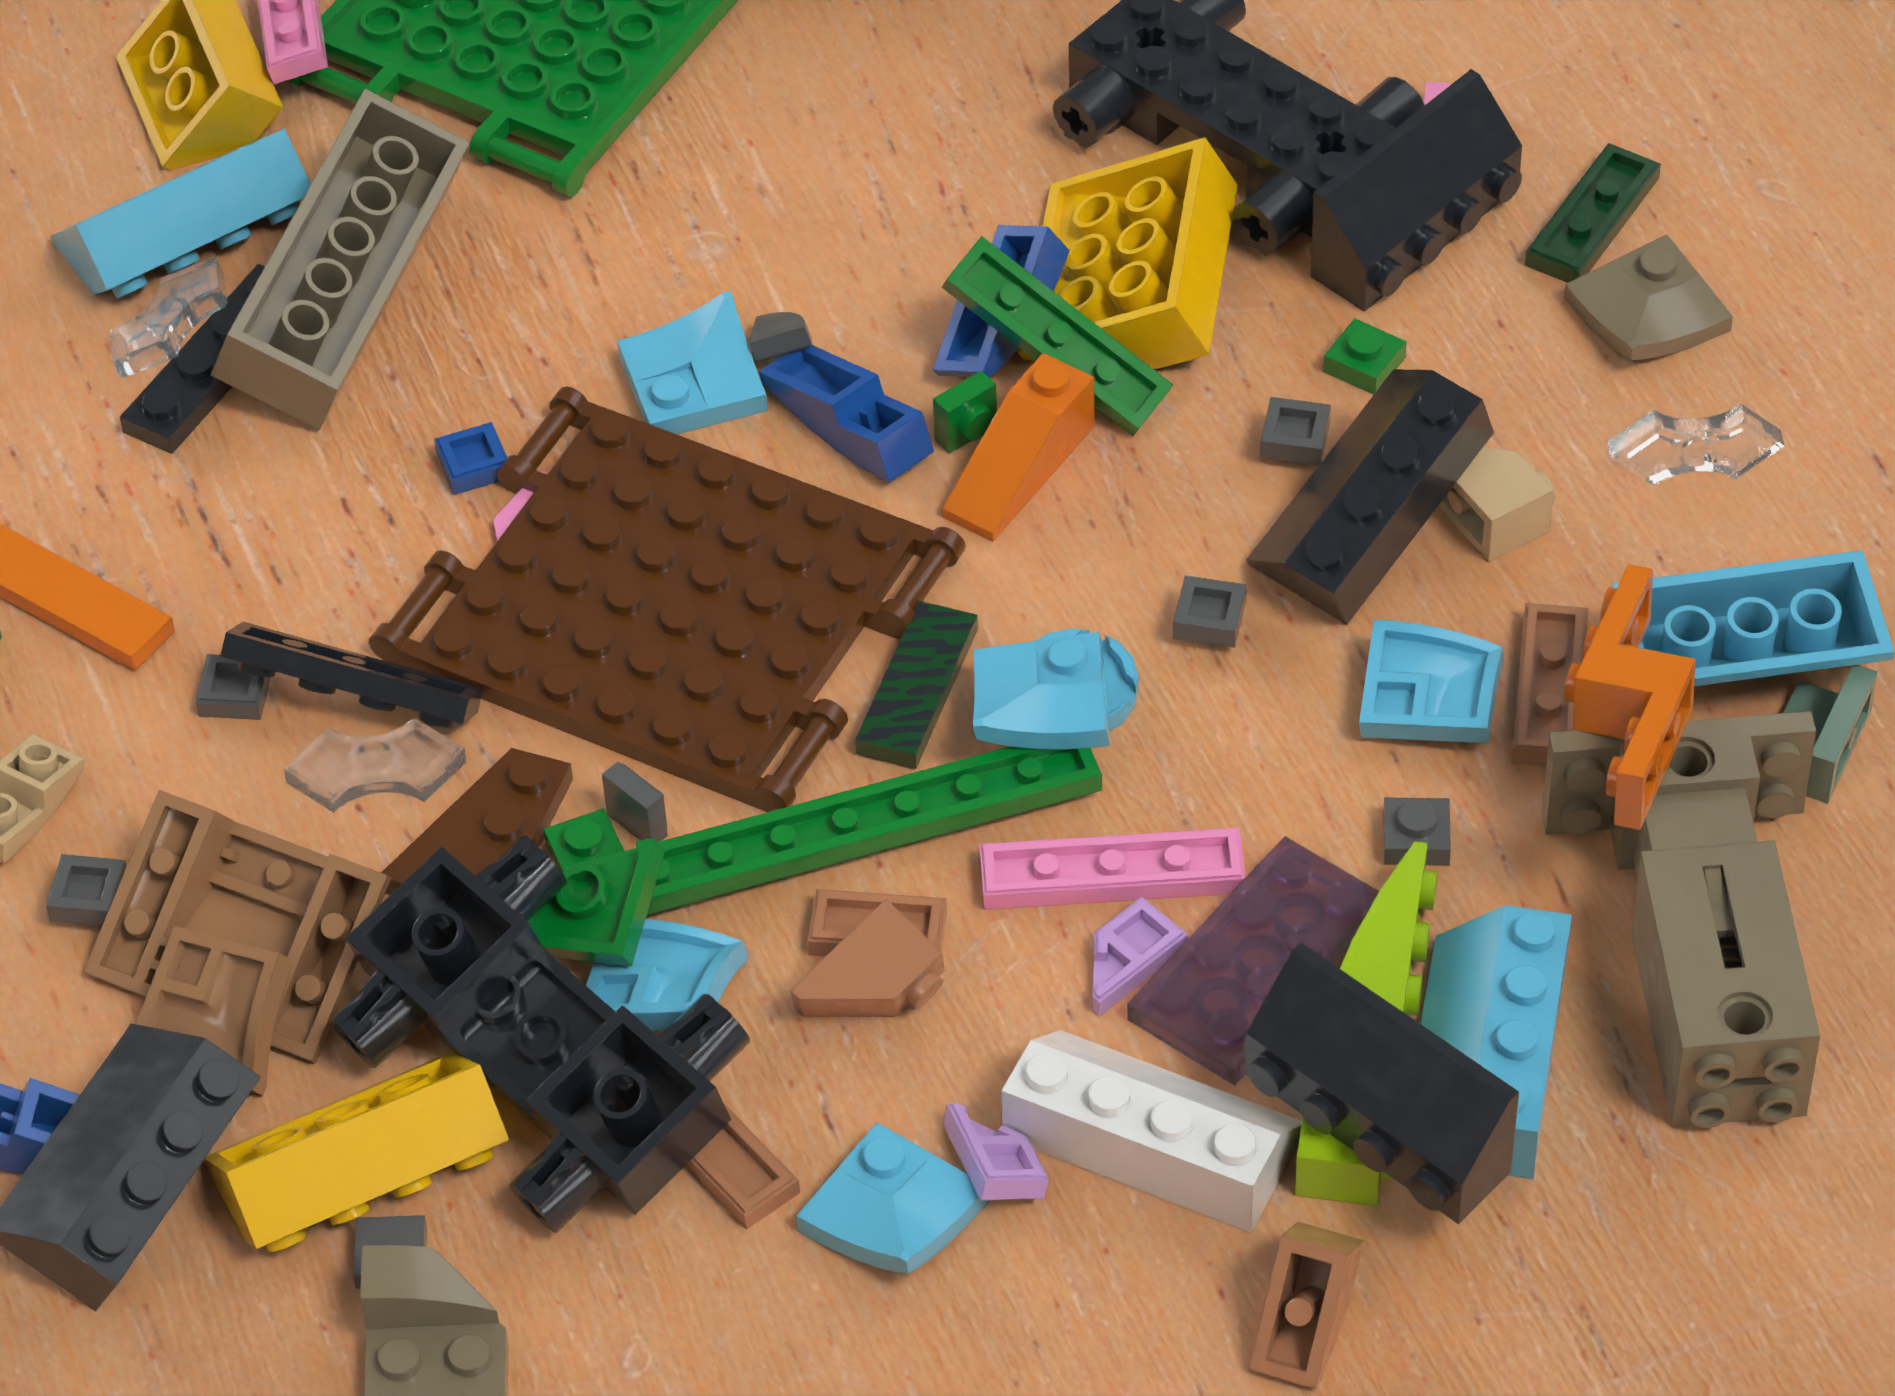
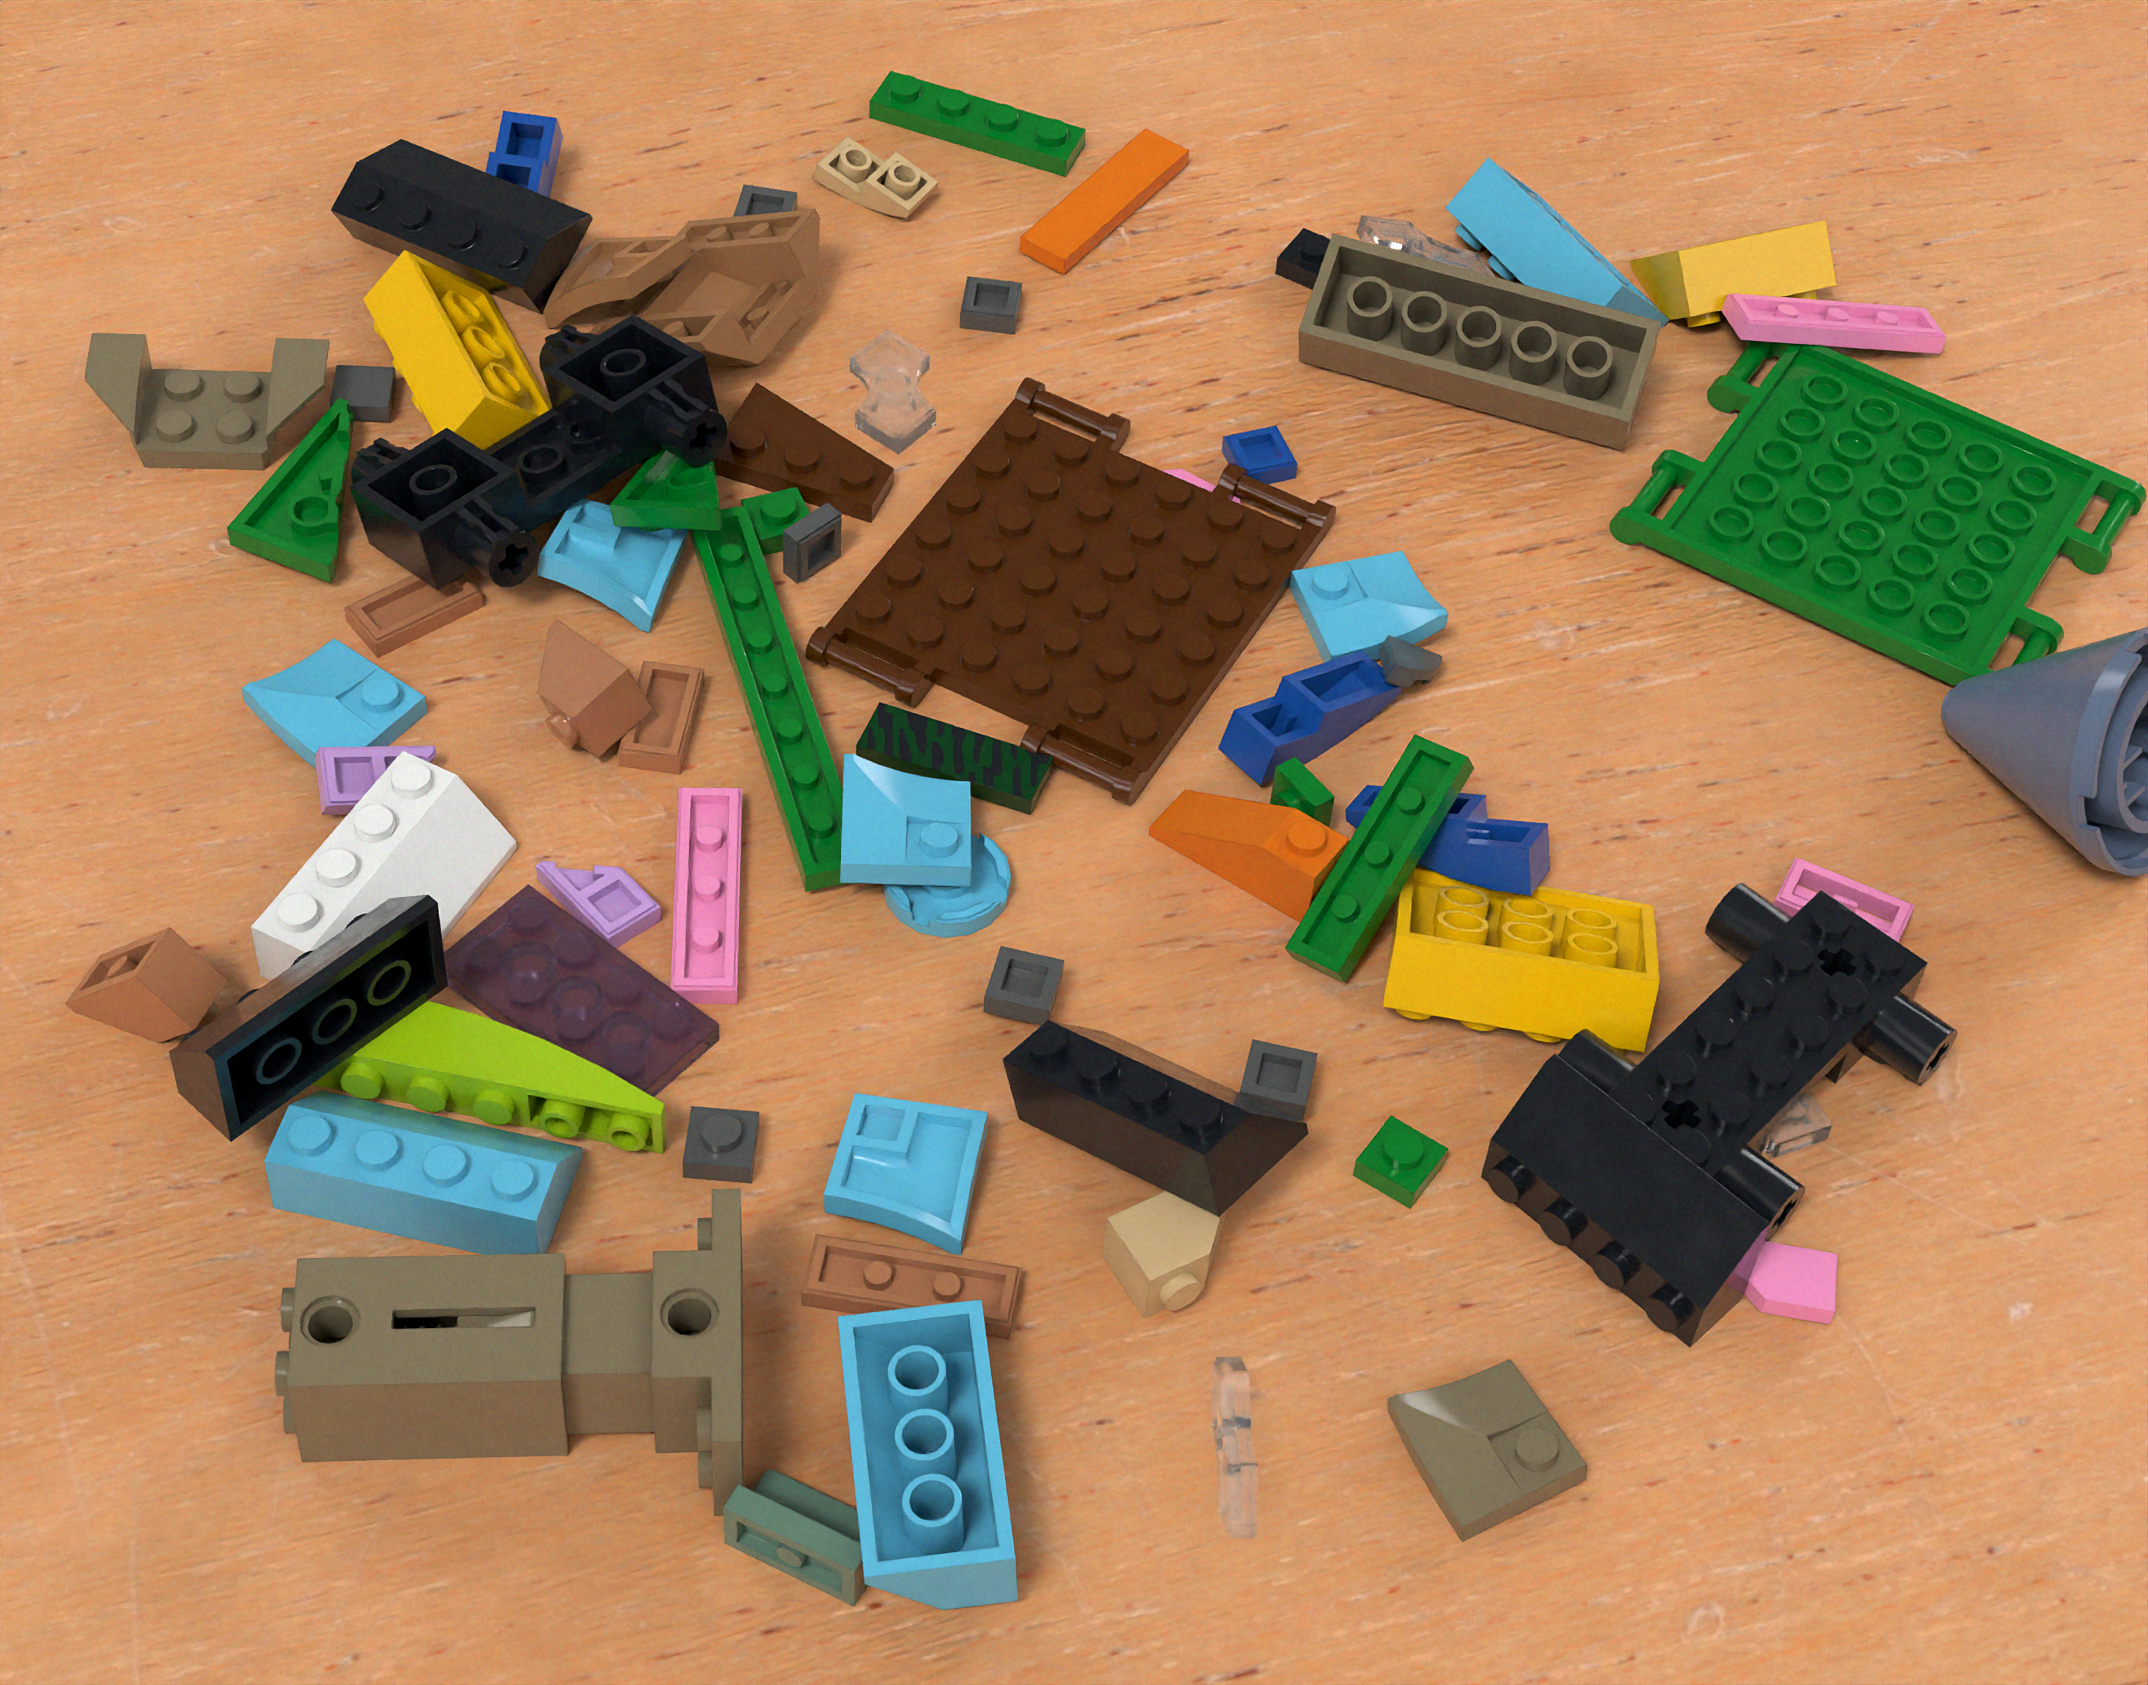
camera: 85 degrees right, 0 degrees up
(329, 668) = (976, 358): black plate -> none
(589, 1279) = (301, 505): none -> green wing
(1028, 89) = (1847, 892): none -> bright pink tile
(1593, 214) = (1640, 1411): dark green tile -> none
(1631, 695) = (756, 1247): orange bracket -> none

